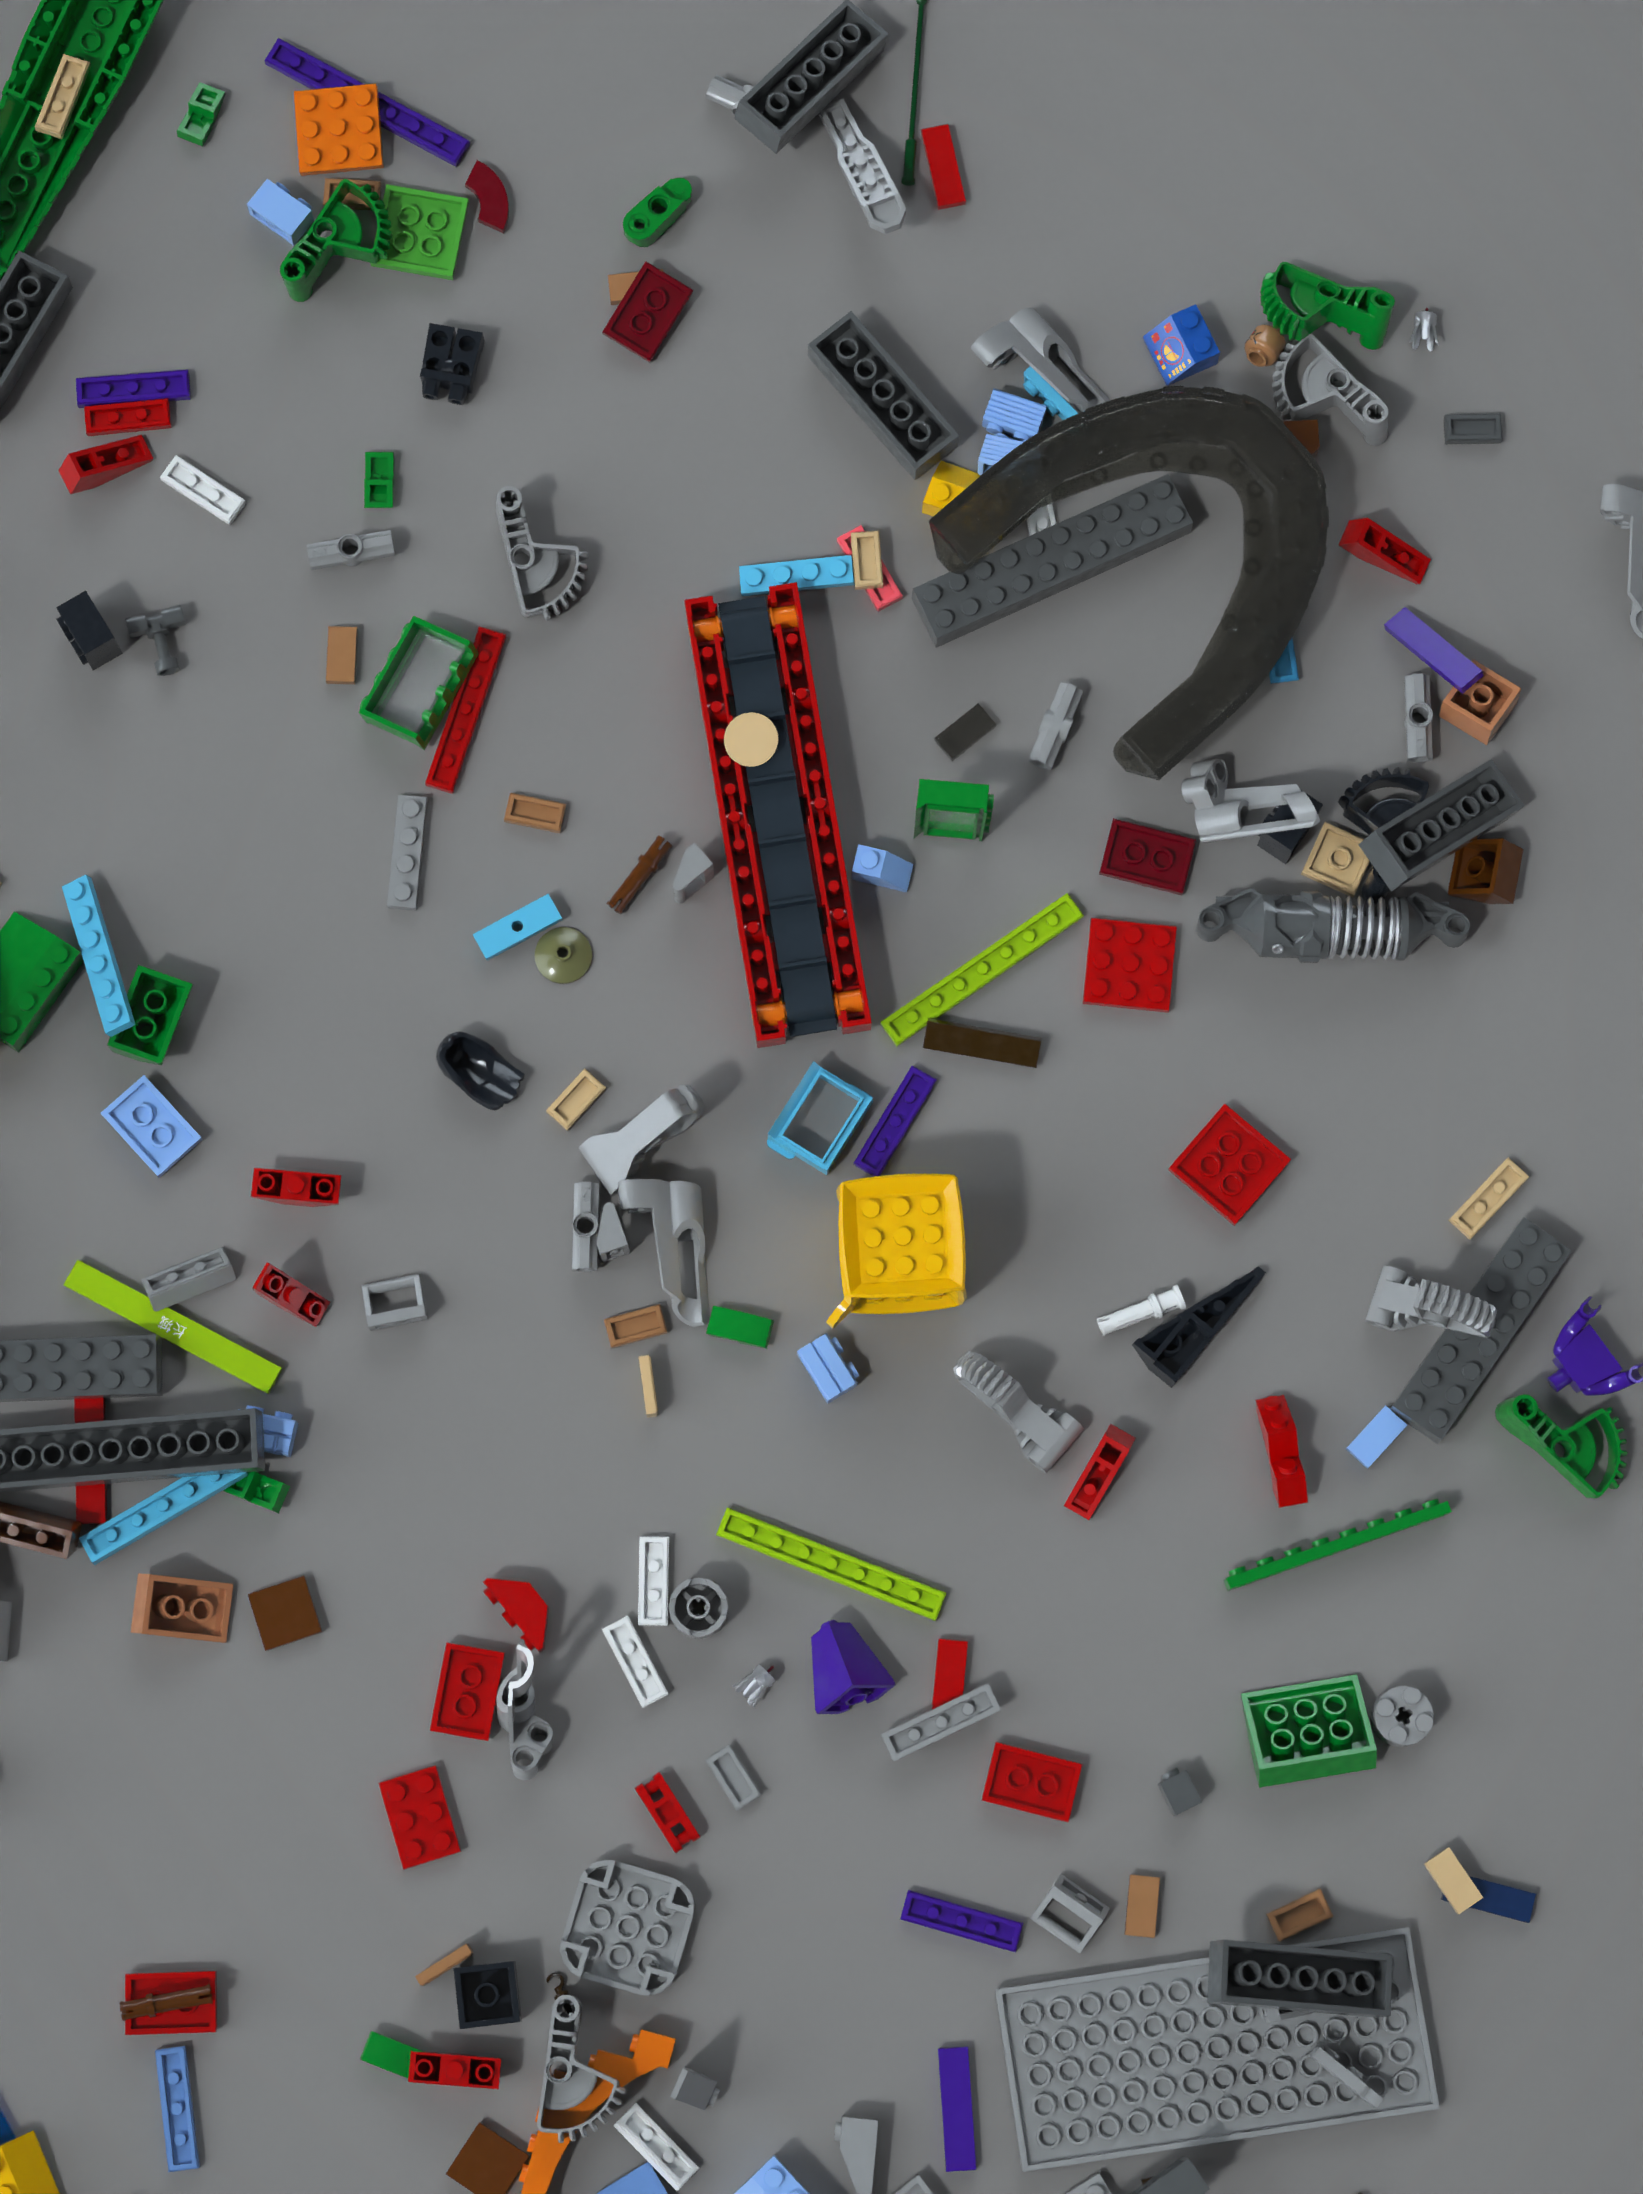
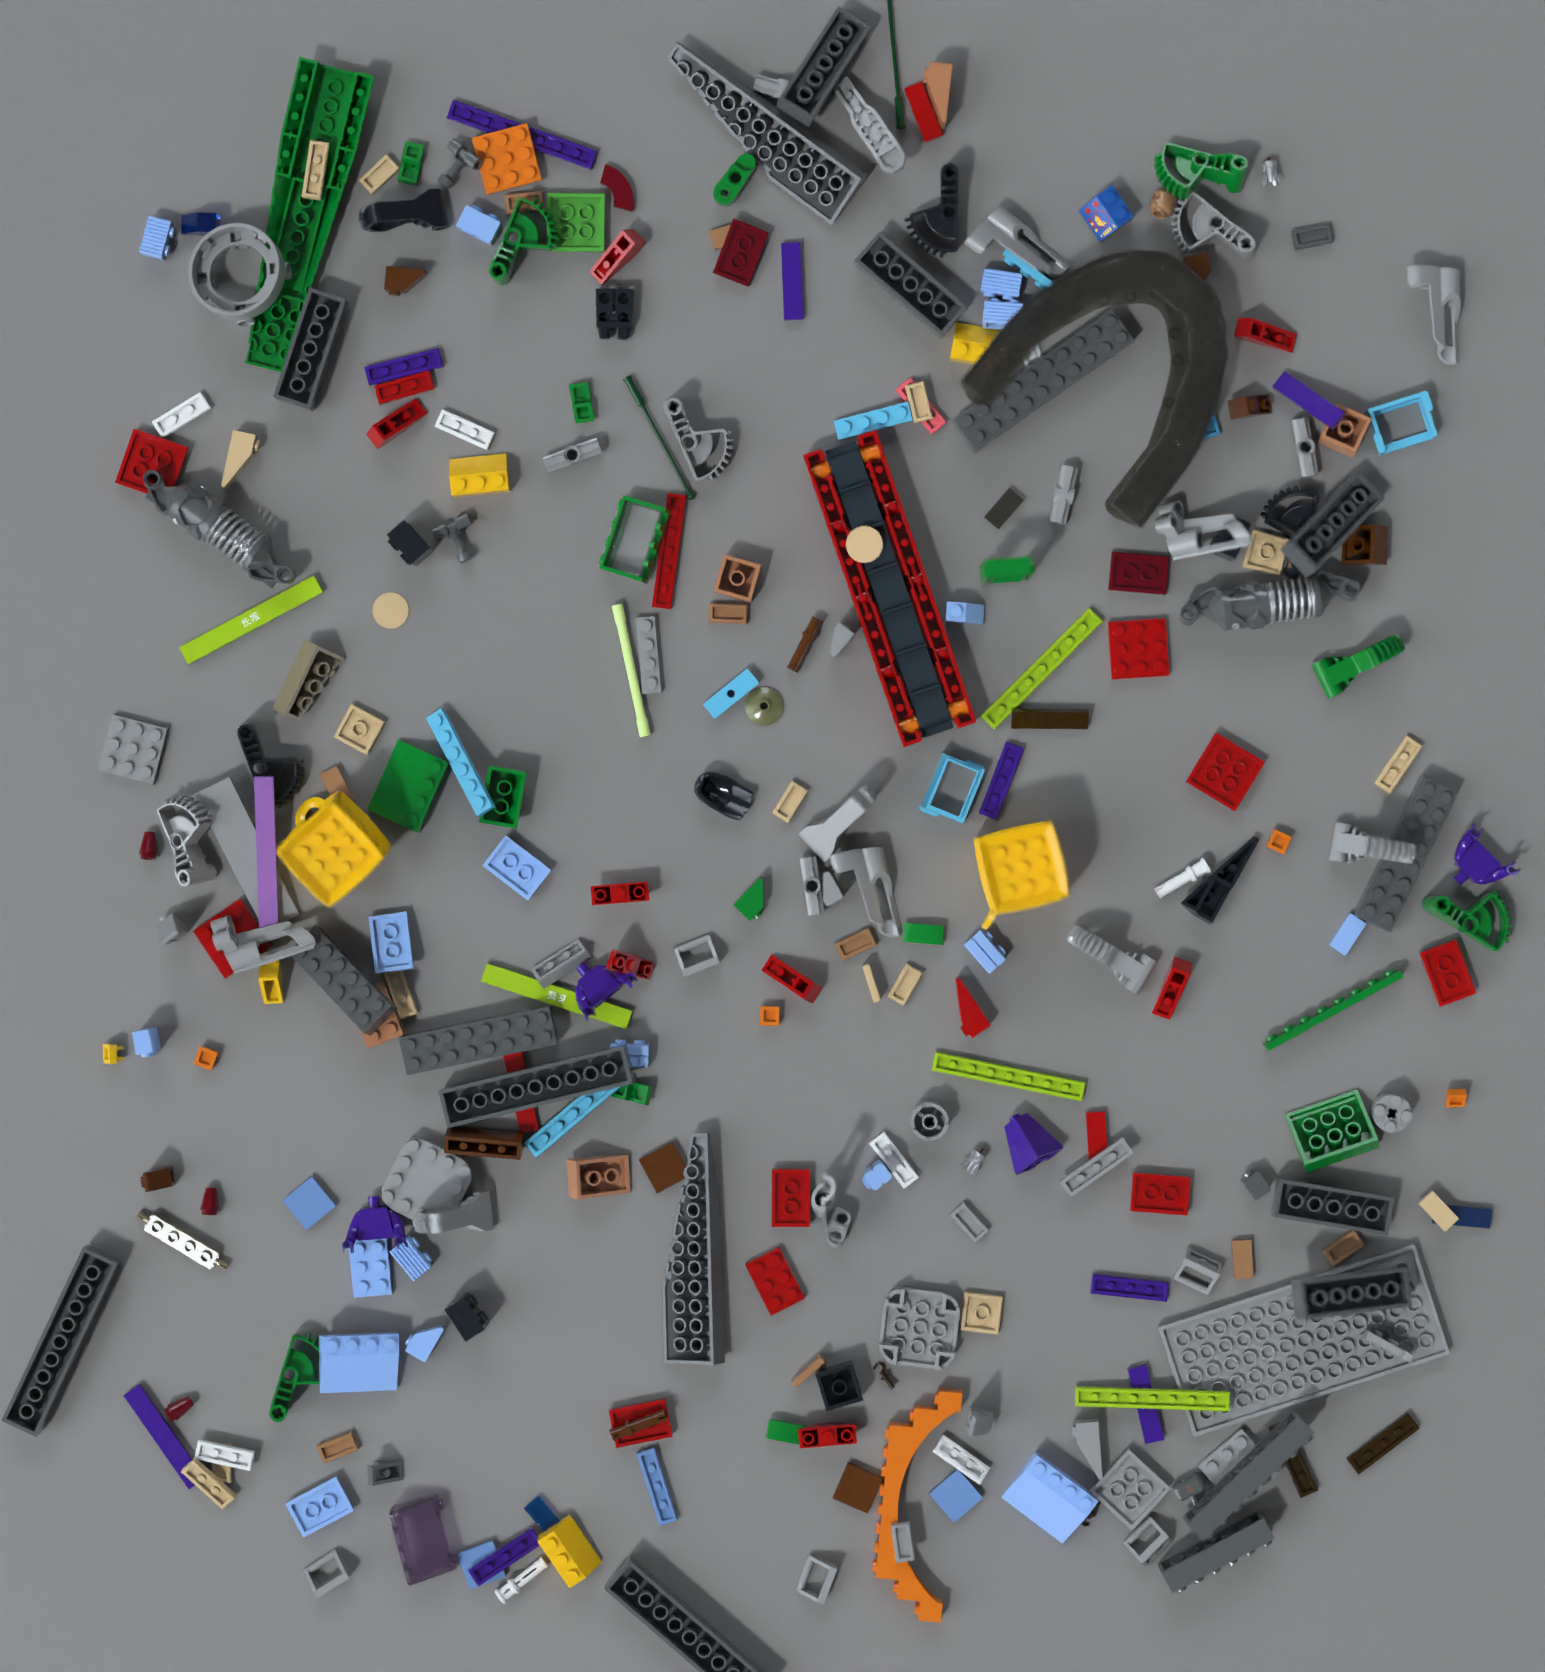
camera: 10 degrees left, 10 degrees up
(42, 726) = (390, 610): none -> tan sticker
(153, 122) = (379, 174): none -> tan tile
(155, 267) = (402, 280): none -> reddish brown slope
(165, 170) = (426, 210): none -> black arm
(210, 557) = (479, 475): none -> yellow slope
(238, 1319) = (598, 986): none -> dark purple torso
(276, 116) = (463, 158): none -> dark grey bar
(299, 1783) = (695, 1270): none -> dark grey wedge
(341, 655) = (579, 528): medium nougat tile -> none
(375, 795) = (620, 620): none -> yellowish green piece
(464, 495) = (640, 402): none -> dark green piece
(470, 285) = (617, 255): none -> red slope
(486, 1410) = (769, 1015): none -> orange plate
(491, 1233) = (751, 901): none -> green slope
(522, 1607) = (816, 1139): red slope -> none
(531, 1361) = (792, 979): none -> red slope
(557, 762) = (737, 578): none -> nougat brick
(580, 2078) = (907, 1430): light grey arm -> none
(601, 1677) = (876, 1175): none -> light blue brick
(653, 1581) = (896, 1106): white tile -> none
(667, 1812) = (931, 1251): red plate -> none
(698, 1399) = (904, 984): none -> tan tile
(714, 364) = (792, 281): none -> dark purple tile
(727, 1921) = (981, 1312): none -> tan tile
(729, 174) = (779, 144): none -> dark grey wedge
(790, 1461) = (970, 1014): none -> red slope
(935, 304) = (935, 215): none -> black arm
(968, 2099) = (1152, 1398): none -> lime tile
(971, 124) = (938, 87): none -> nougat slope
(1282, 1451) = (1288, 954): red arch -> none
(1292, 1844) = (1332, 1206): none -> dark grey brick
(1294, 1280) = (1278, 841): none -> orange plate
(1346, 646) = (1249, 406): none -> reddish brown slope
(1420, 1049) = (1338, 672): none -> green arm
(1504, 1712) = (1455, 1098): none -> orange plate
(1518, 1520) = (1447, 973): none -> red plate
(1602, 686) = (1425, 405): none -> medium azure piece

